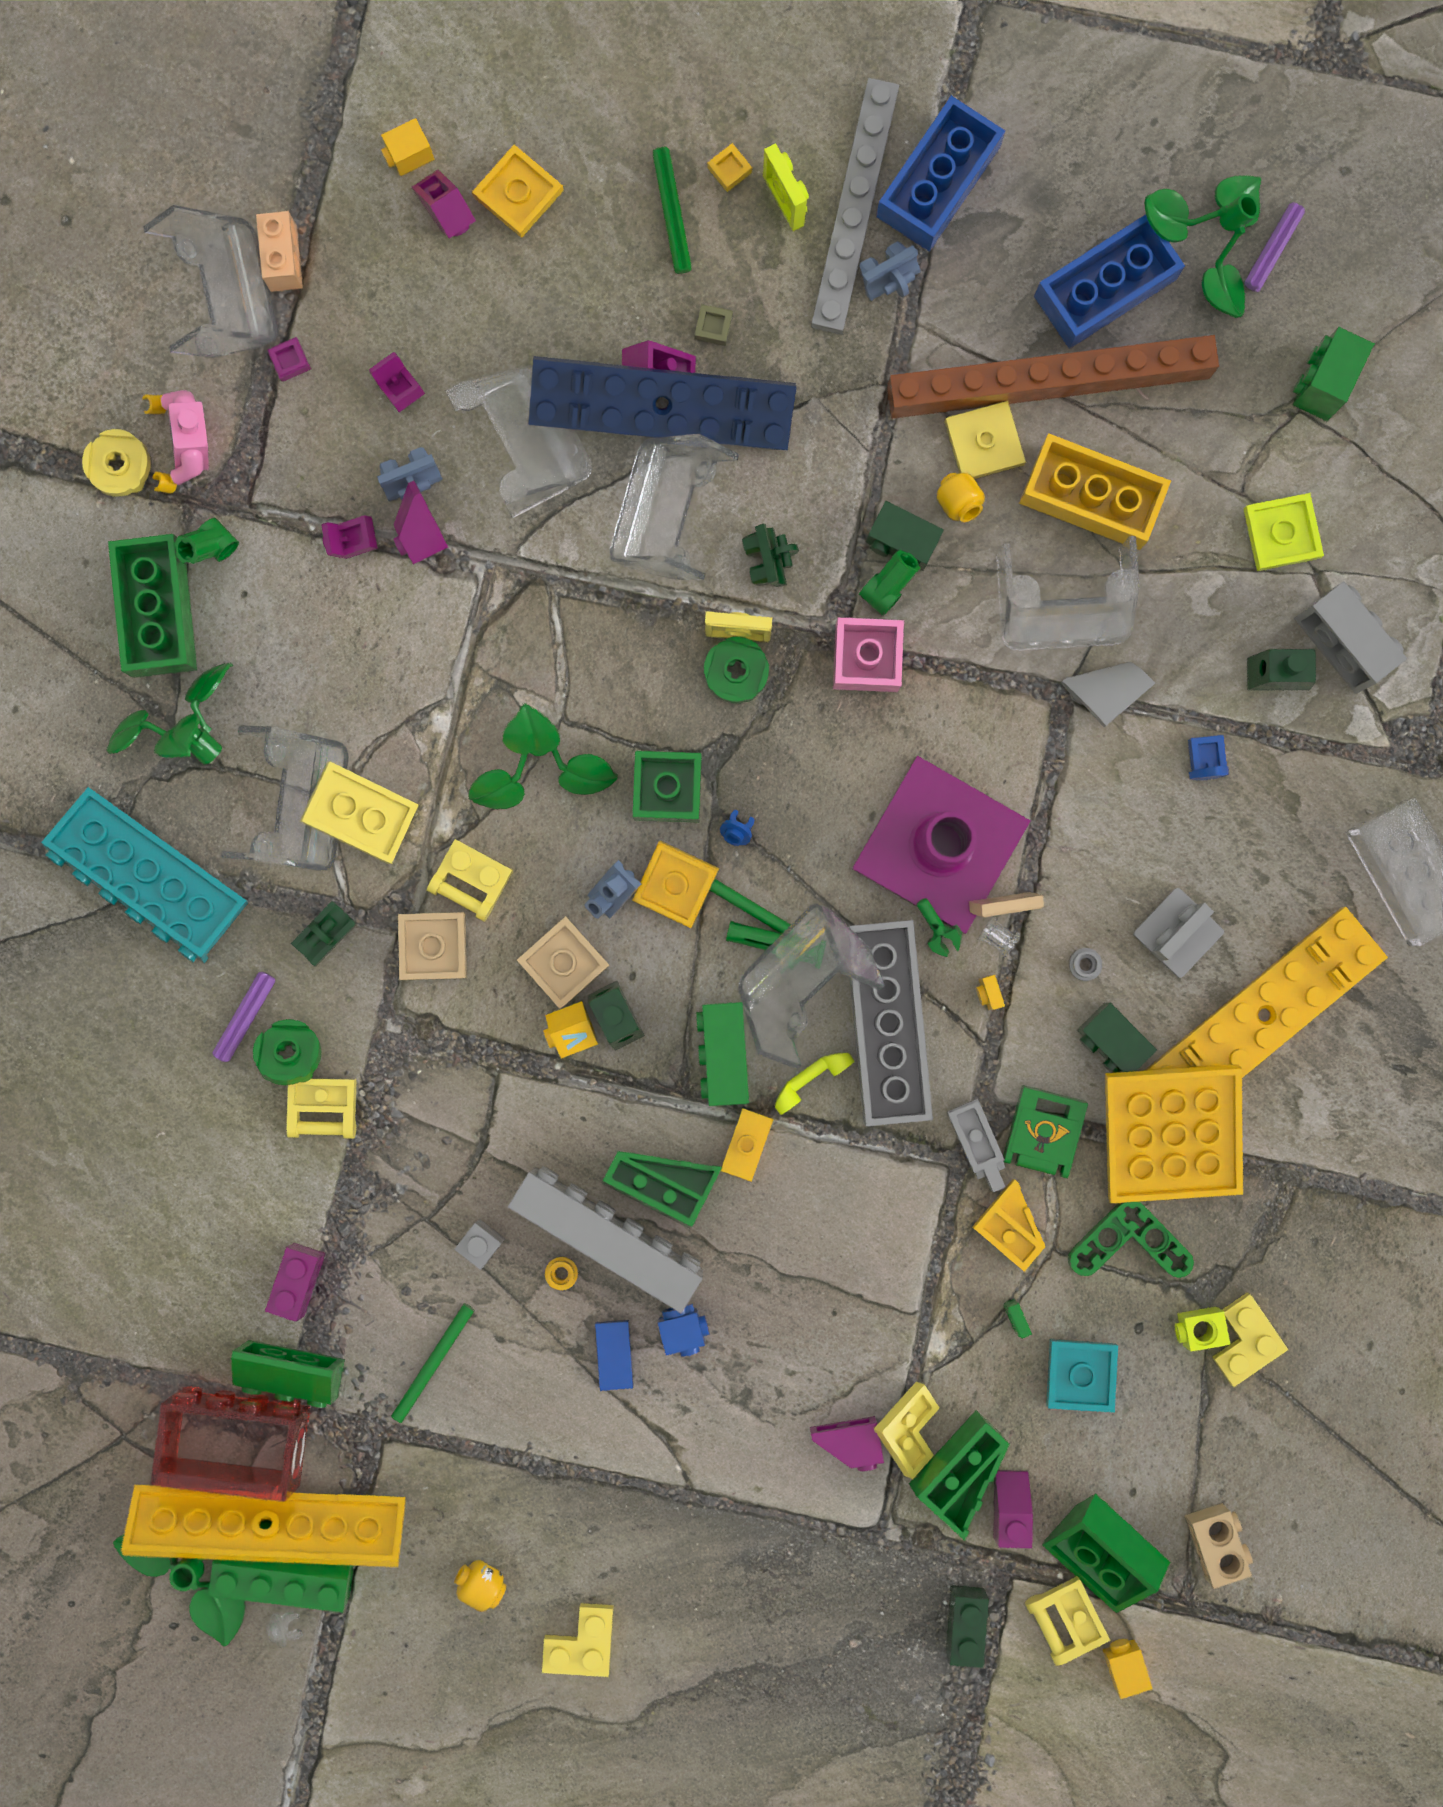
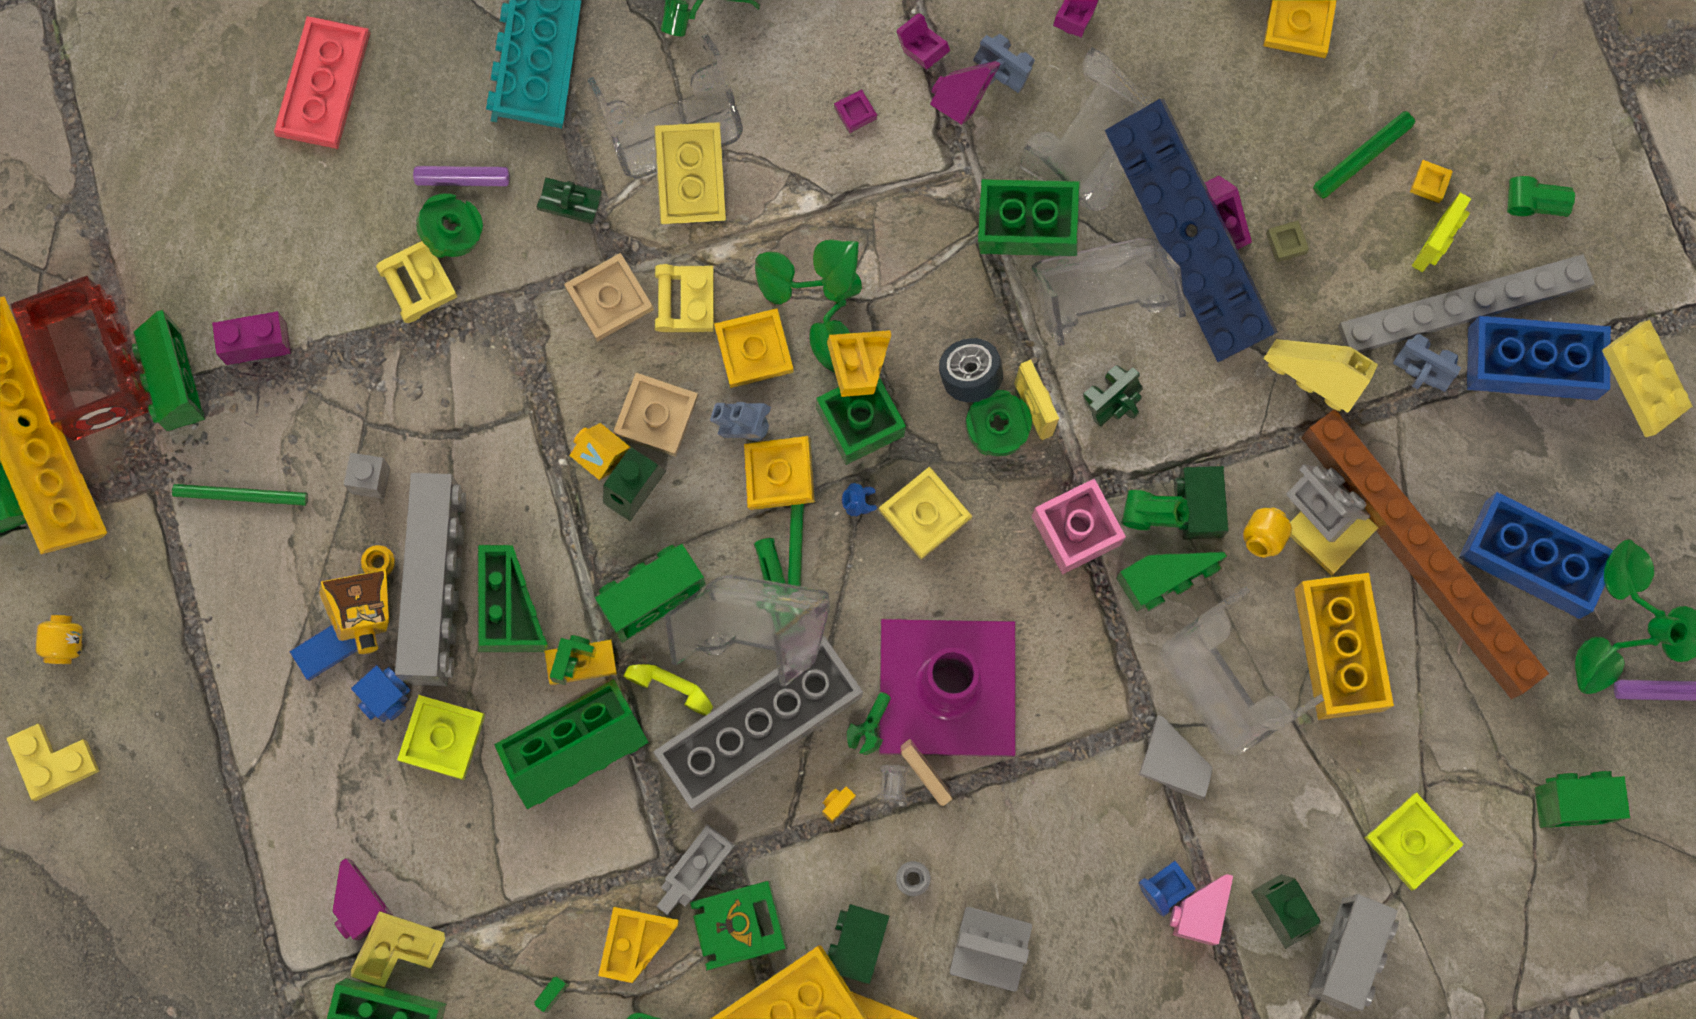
camera: 55 degrees right, 10 degrees down
(81, 1095) = (322, 82): none -> coral tile
(378, 632) = (855, 111): none -> magenta tile
(550, 844) = (753, 348): none -> yellow plate
(569, 536) = (1029, 217): none -> green brick
(597, 1312) = (357, 607): none -> torso
(621, 761) = (858, 360): none -> yellow wing
(662, 672) = (967, 356): none -> black wheel
(747, 1159) = (565, 662): none -> green bracket
(747, 1298) = (441, 737): none -> neon yellow plate
(780, 778) = (925, 513): none -> light yellow plate
(792, 91) = (1530, 197): none -> green piece
(814, 1191) = (570, 744): none -> green slope
(850, 361) = (1327, 369): none -> light yellow slope
(946, 616) = (1159, 575): none -> green slope
(965, 430) = (1327, 501): none -> light grey bracket
(1010, 92) = (1647, 378): none -> light yellow plate
(1246, 739) = (1203, 912): none -> bright pink slope

